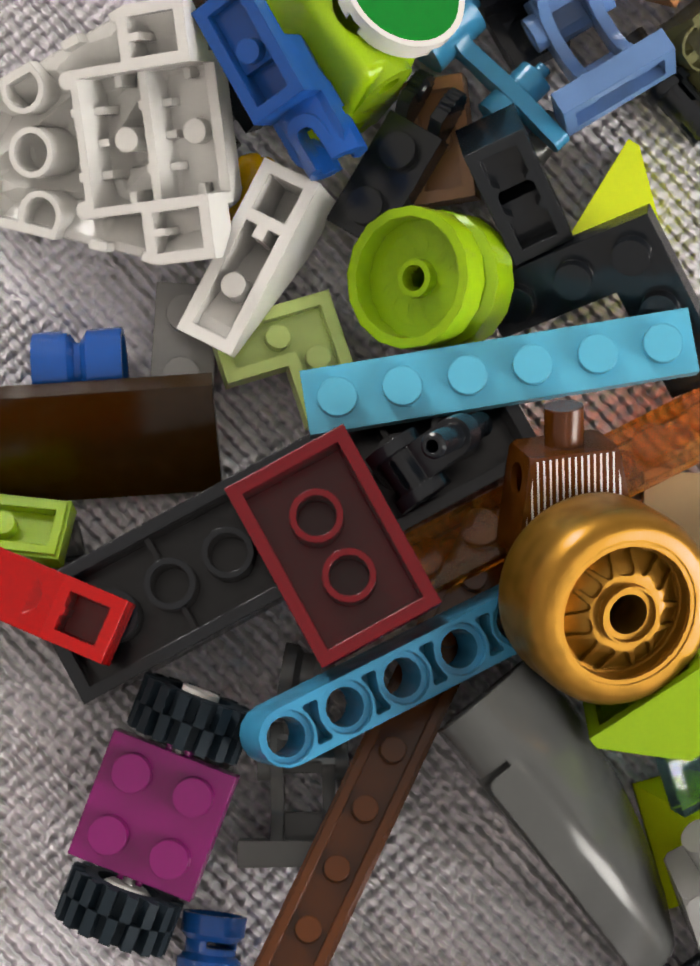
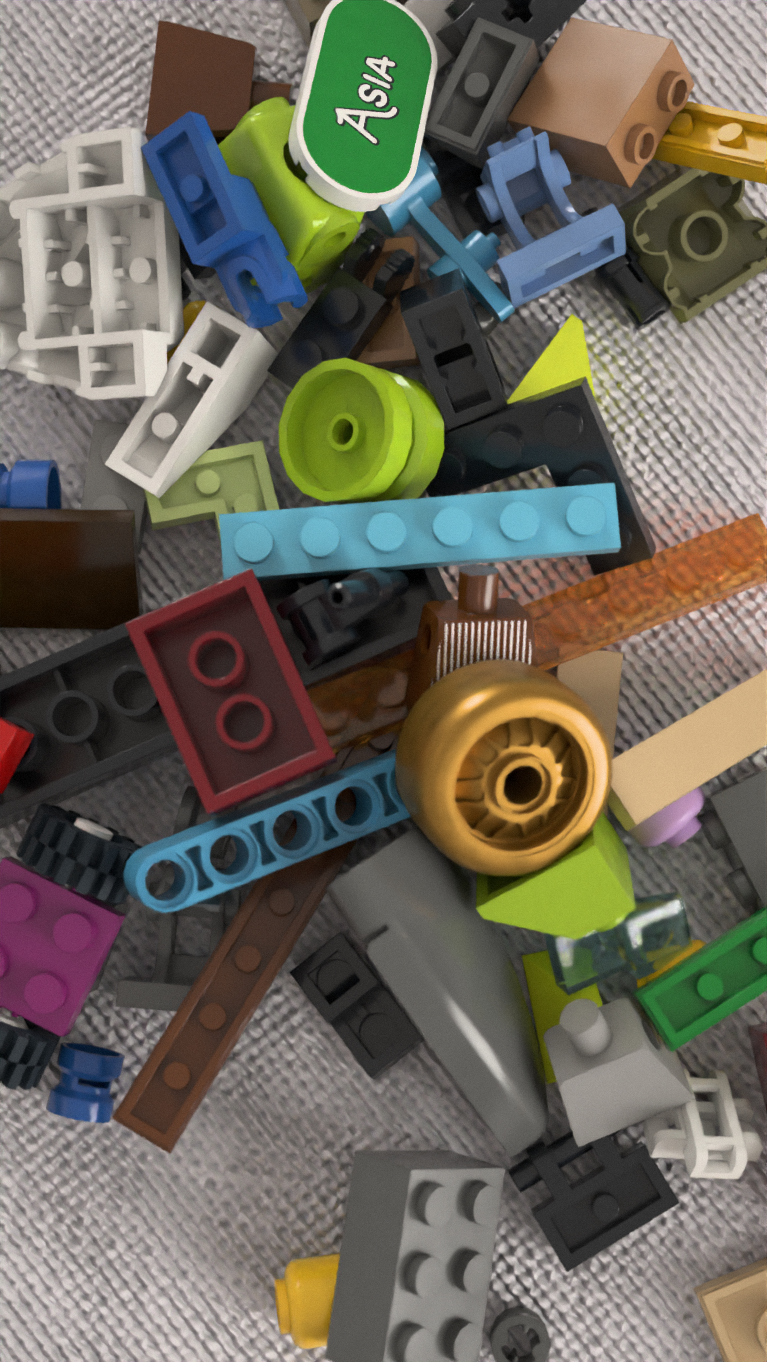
camera: 10 degrees right, 0 degrees up
(473, 847) = (357, 1006): none -> black slope

